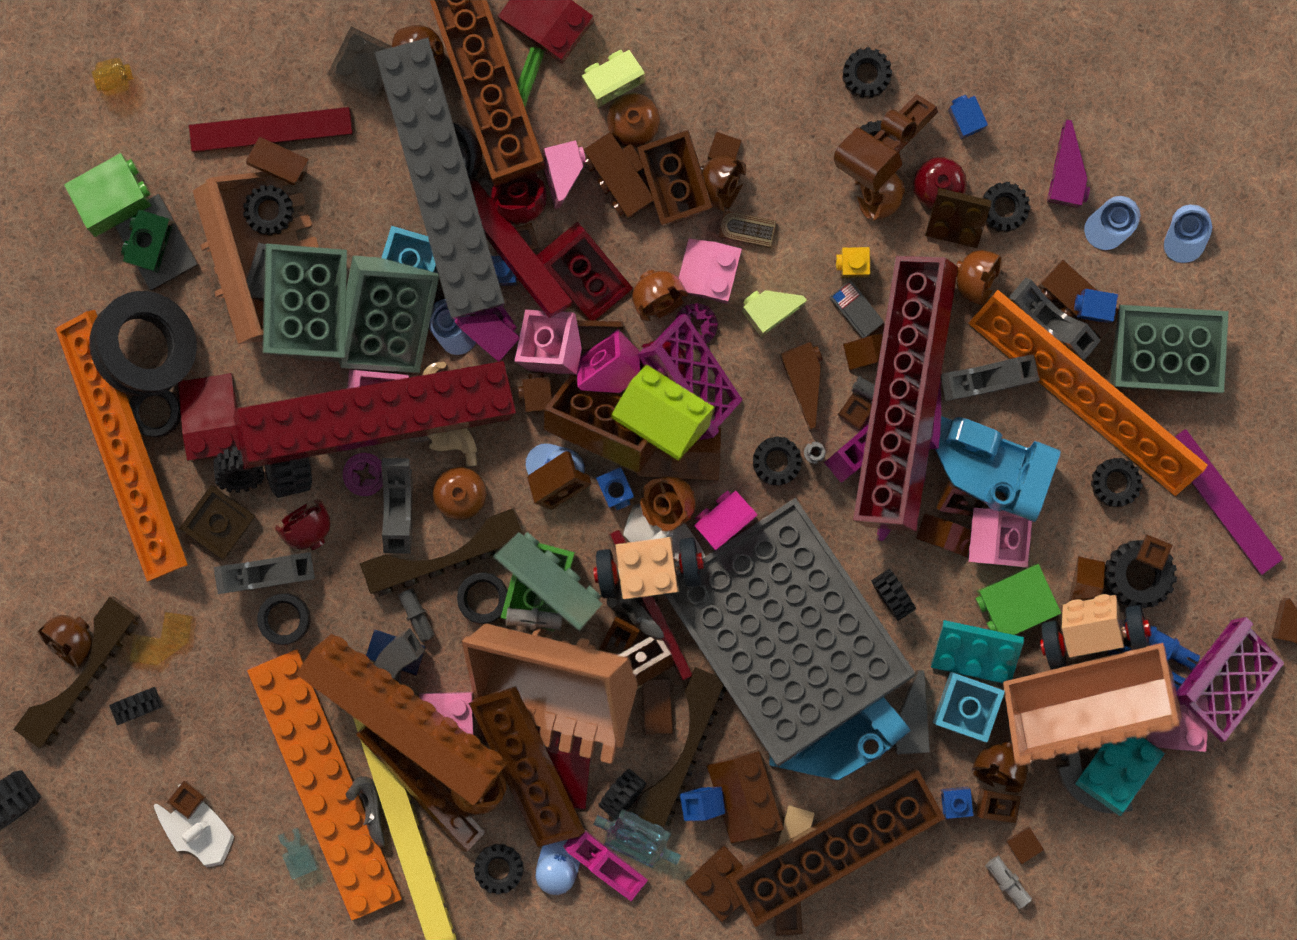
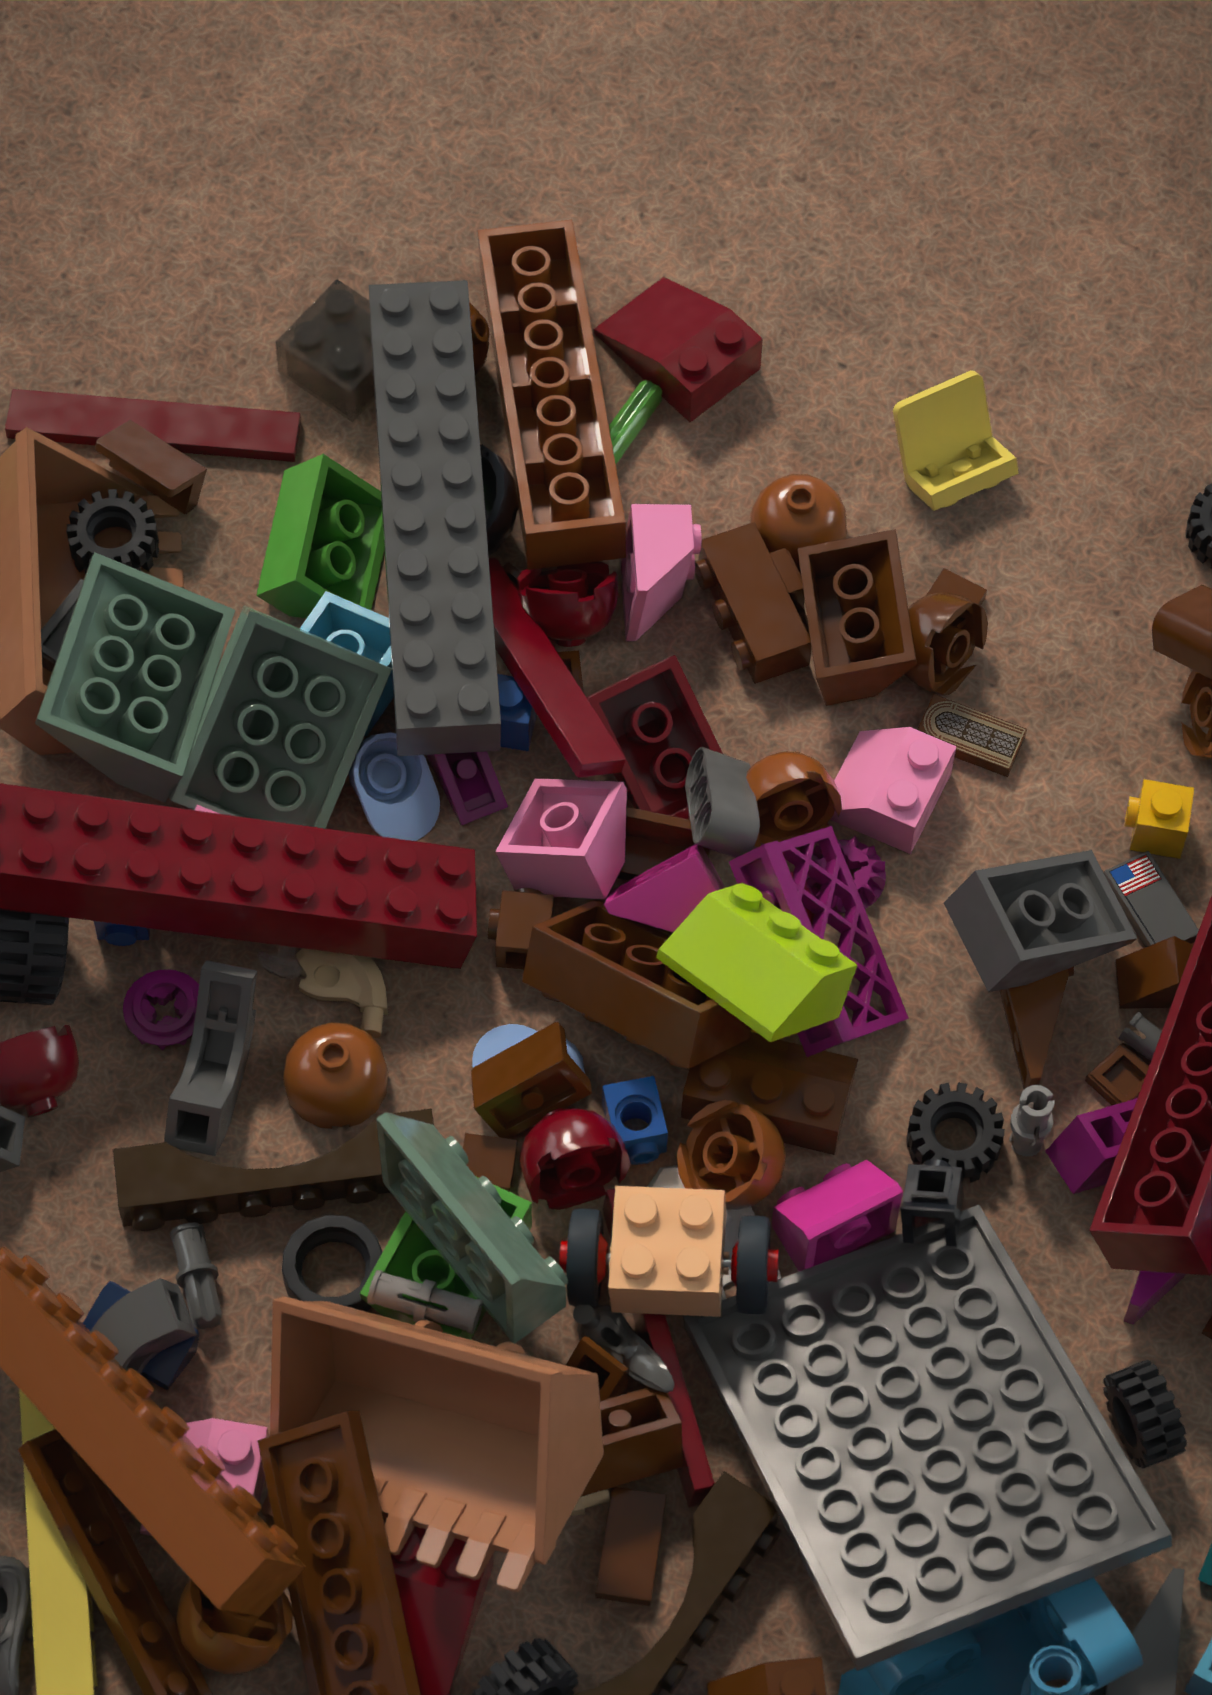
camera: 10 degrees right, 25 degrees down
(381, 189) = (322, 539): none -> bright green slope
(490, 333) = (459, 803): dark pink slope -> none
(546, 524) = (491, 1158): none -> reddish brown tile
(587, 517) = (572, 1158): none -> dark red cylinder
(613, 77) = (778, 446): yellowish green slope -> none
(626, 310) = (721, 803): none -> dark grey beam
(708, 58) = (950, 442): none -> light yellow bracket
(770, 309) = (991, 840): yellowish green slope -> none
(772, 491) = (932, 1192): none -> black window
(801, 343) = (1037, 918): none -> dark grey slope

